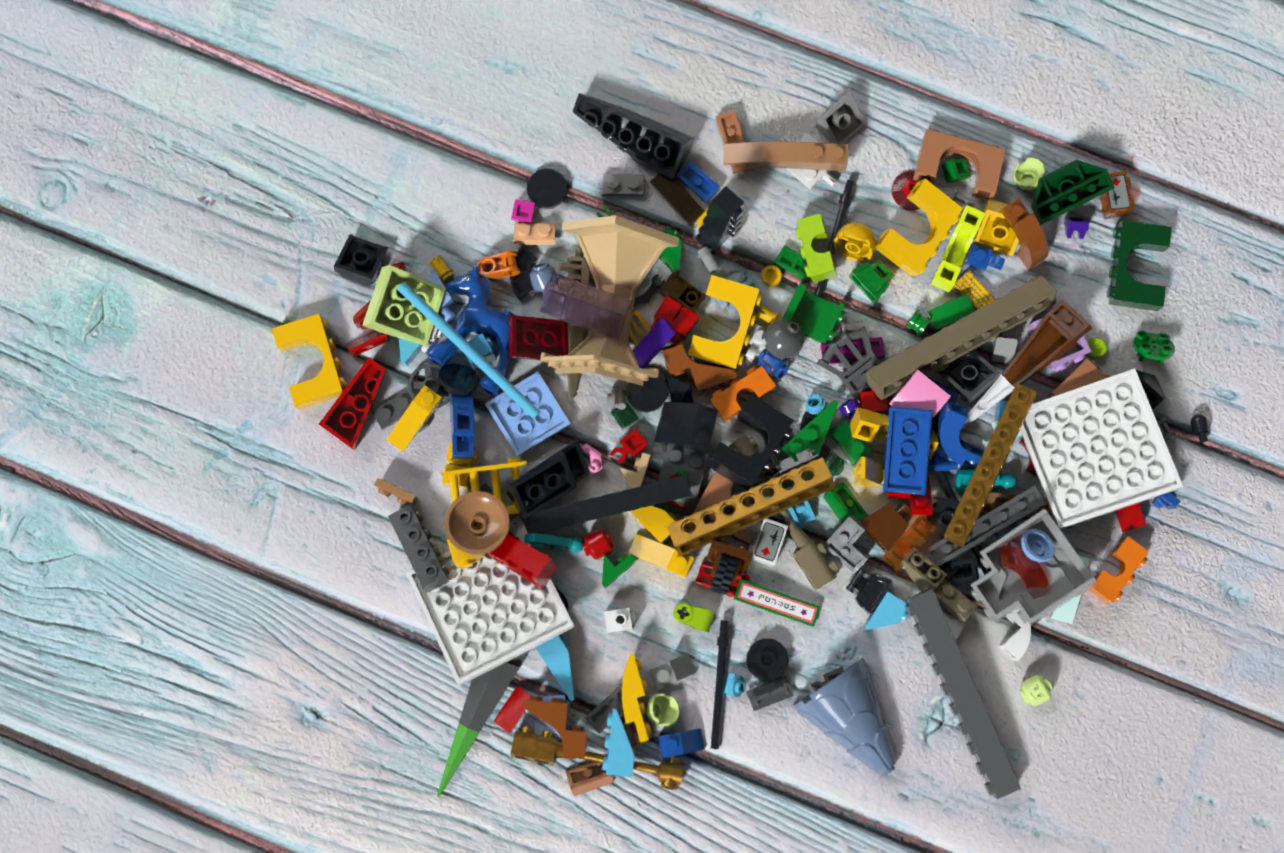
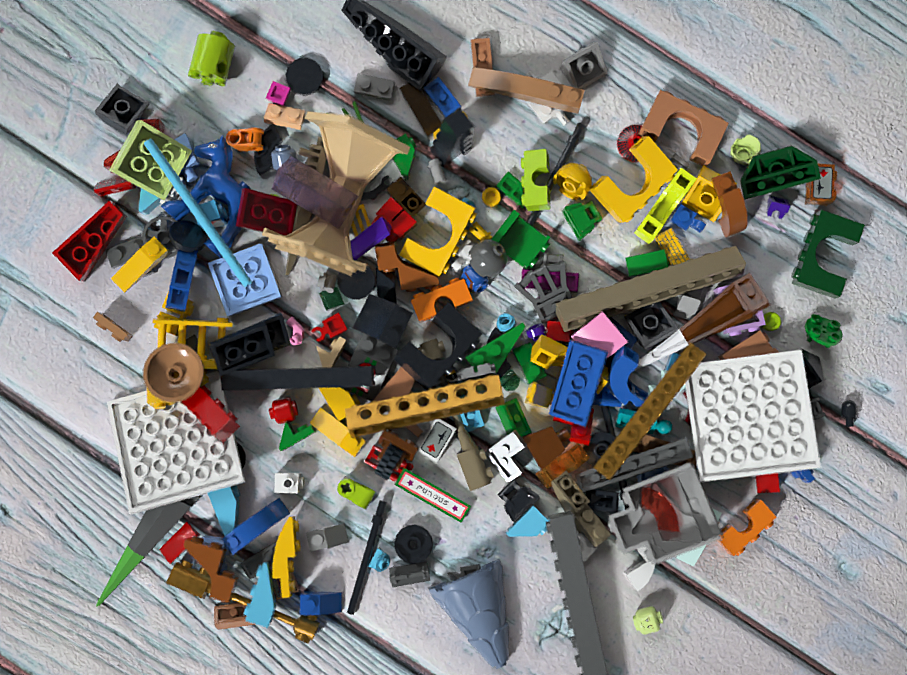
camera: 10 degrees right, 5 degrees up
(328, 382) = (72, 214): yellow arch -> none
(419, 549) = (121, 382): dark grey brick -> none
(442, 269) = (194, 132): yellow pin -> none
(446, 188) = (211, 58): none -> lime cylinder
(557, 543) = (246, 403): teal plate -> none
(594, 673) = (255, 526): none -> blue arch
(662, 710) = (310, 570): yellowish green hair -> none
(918, 323) = (614, 266): green wheel -> none
(956, 170) = (679, 133): green slope -> none
(1037, 545) = (676, 493): light blue hat -> none

